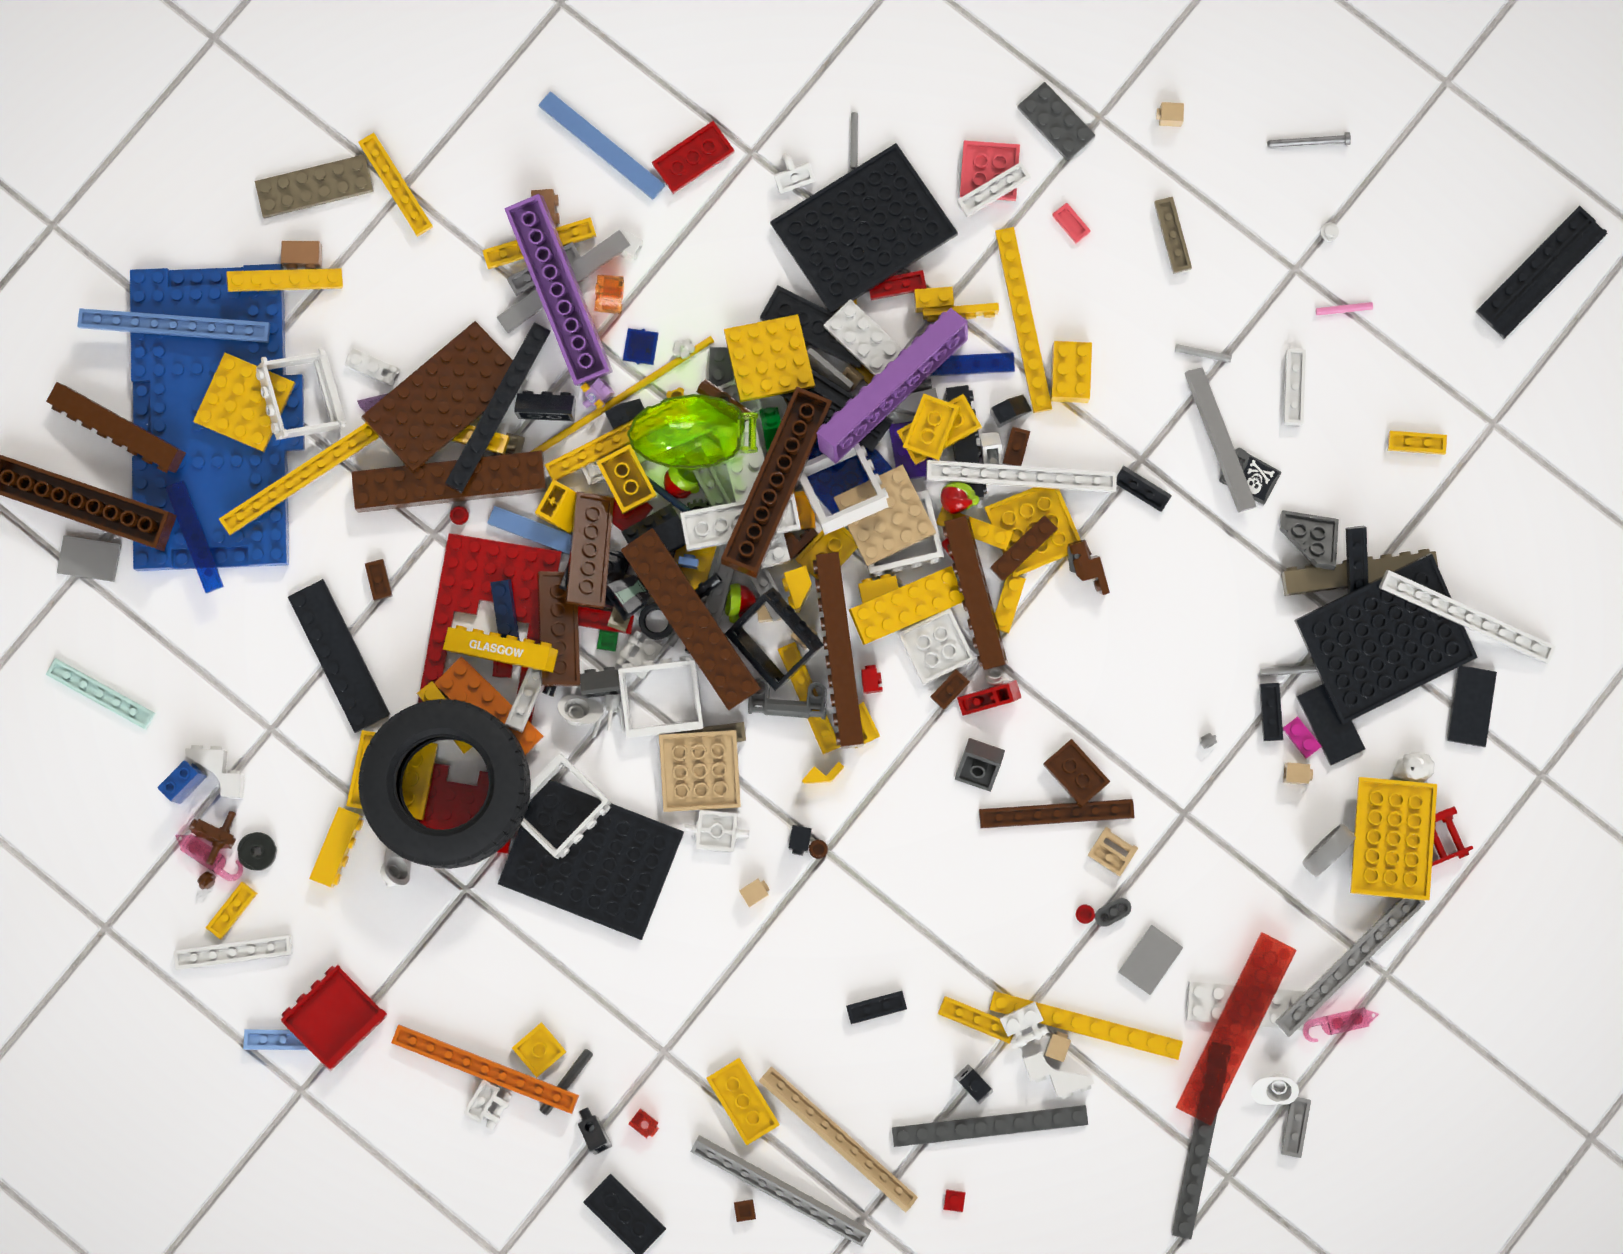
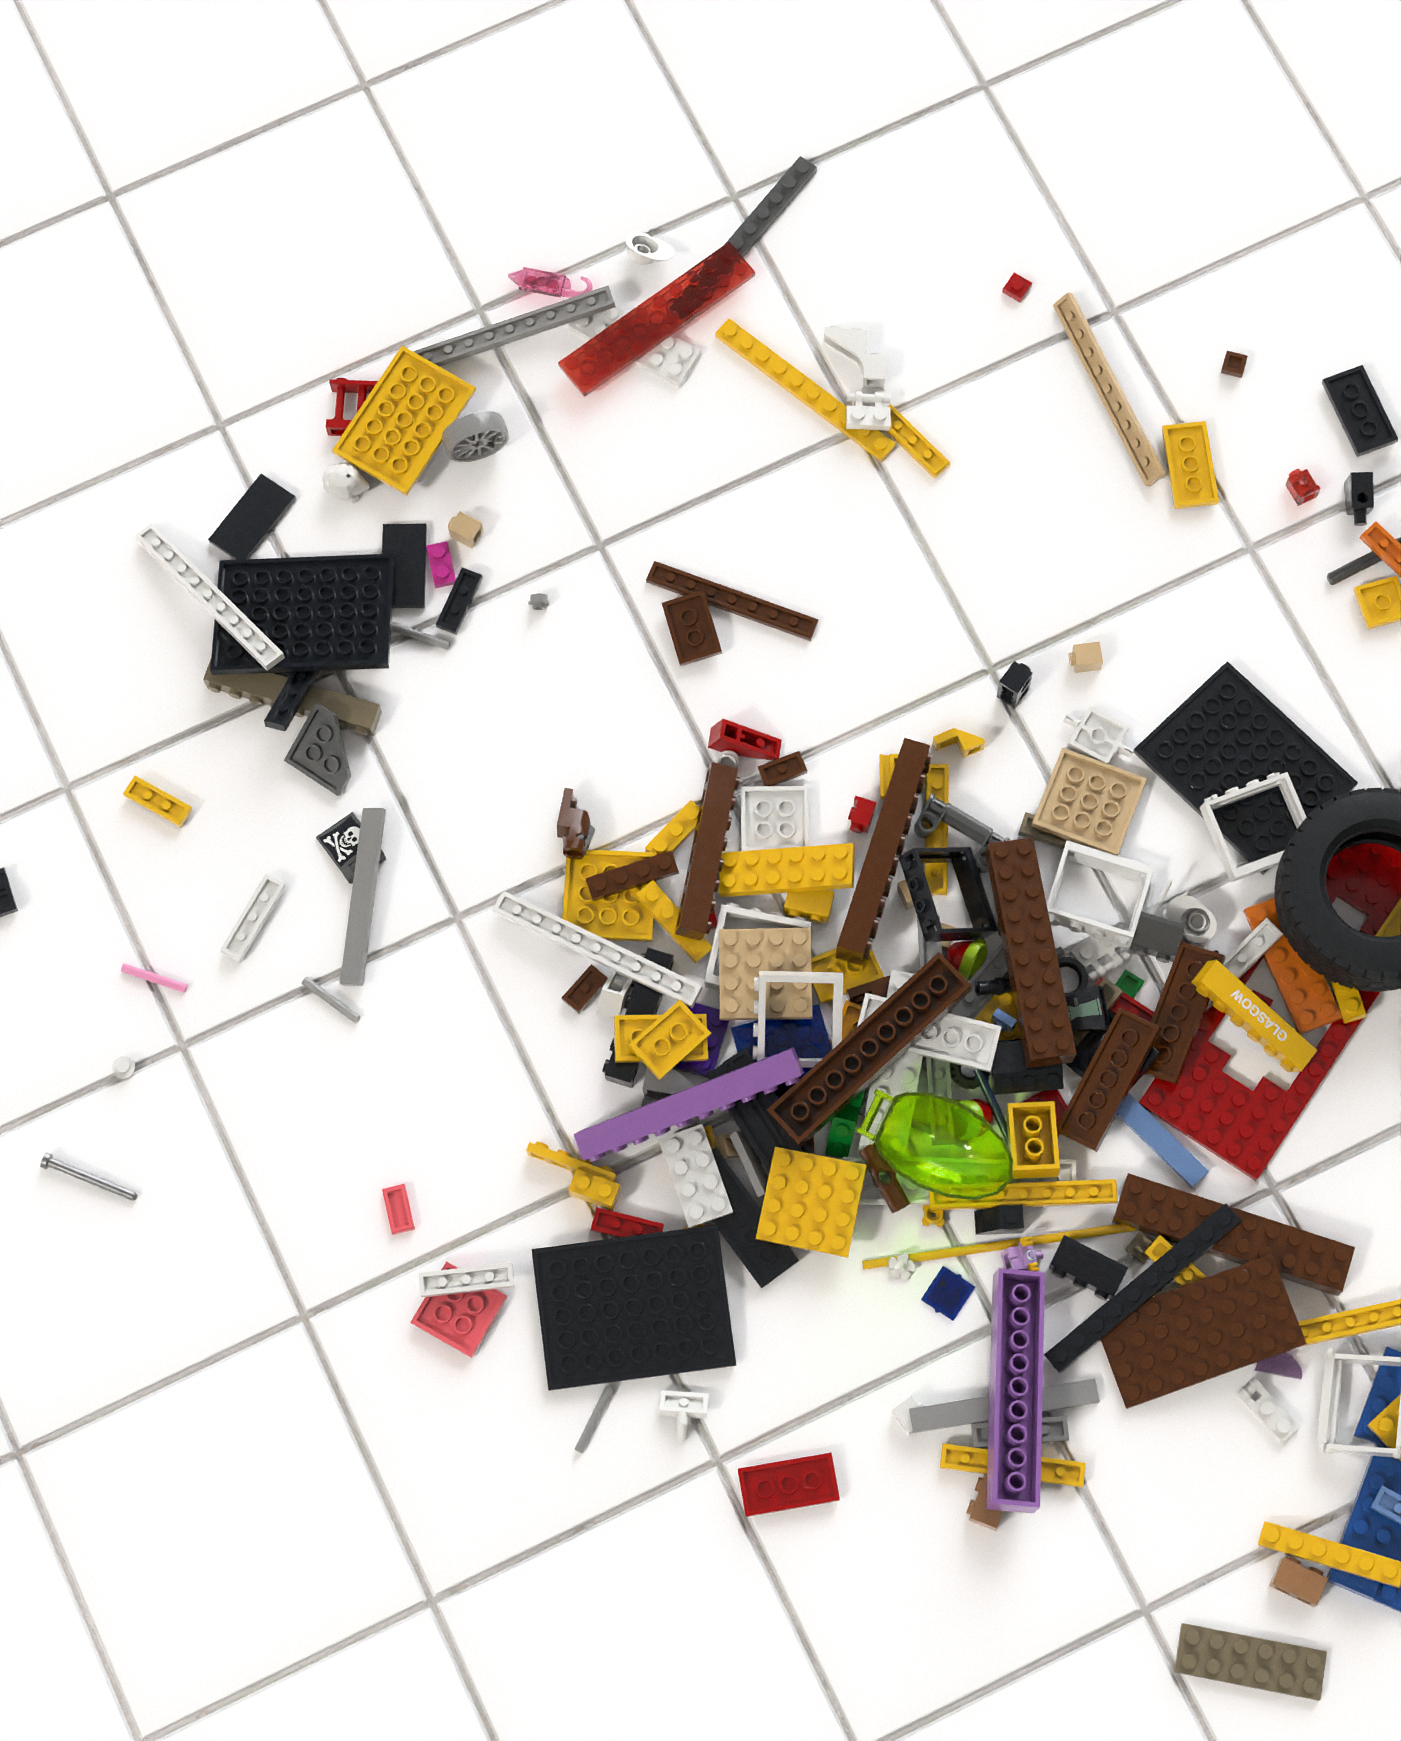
camera: 150 degrees left, 10 degrees down
(378, 579) = (1358, 1163): reddish brown plate -> none
(395, 184) = (1152, 1616): yellow plate -> none
(459, 515) = (1236, 1194): red plate -> none
(504, 608) = (1229, 1062): dark blue plate -> none
(557, 506) = (1121, 1149): yellow slope -> none
(601, 145) = (888, 1551): medium blue tile -> none
(609, 294) = (958, 1362): clear orange brick -> none
(720, 366) = (869, 1227): dark grey wing -> none
(780, 1190) = (1194, 372): light grey plate -> none
(799, 586) = (894, 942): yellow slope -> none
(818, 849) = (996, 671): reddish brown plate -> none
(876, 1007) = (1010, 494): black plate -> none
(958, 497) = (677, 954): red piece -> none
(974, 1084) = (945, 375): black torso -> none
(976, 364) = (583, 1101): clear blue tile -> none
(980, 764) = (787, 680): dark grey slope -> none
(990, 1126) = (948, 339): dark grey plate -> none
(1010, 410) = (571, 1031): black slope -> none
(1023, 320) = (506, 1127): yellow plate -> none
(1056, 121) = (355, 1333): dark grey plate -> none
(1057, 1046) = (844, 379): tan brick -> none
(1071, 371) = (484, 1041): yellow brick -> none
(1085, 914) = (752, 492): red plate -> none
(1108, 856) = (700, 535): tan plate -> none
(1112, 912) = (723, 480): dark grey plate -> none
(1142, 488) = (472, 883): black plate -> none
(1150, 959) = (707, 421): light grey tile -> none
(1170, 114) = (224, 1278): tan brick -> none
(1172, 235) = (294, 1142): dark tan plate -> none
(1296, 1127) = (645, 208): light grey plate -> none

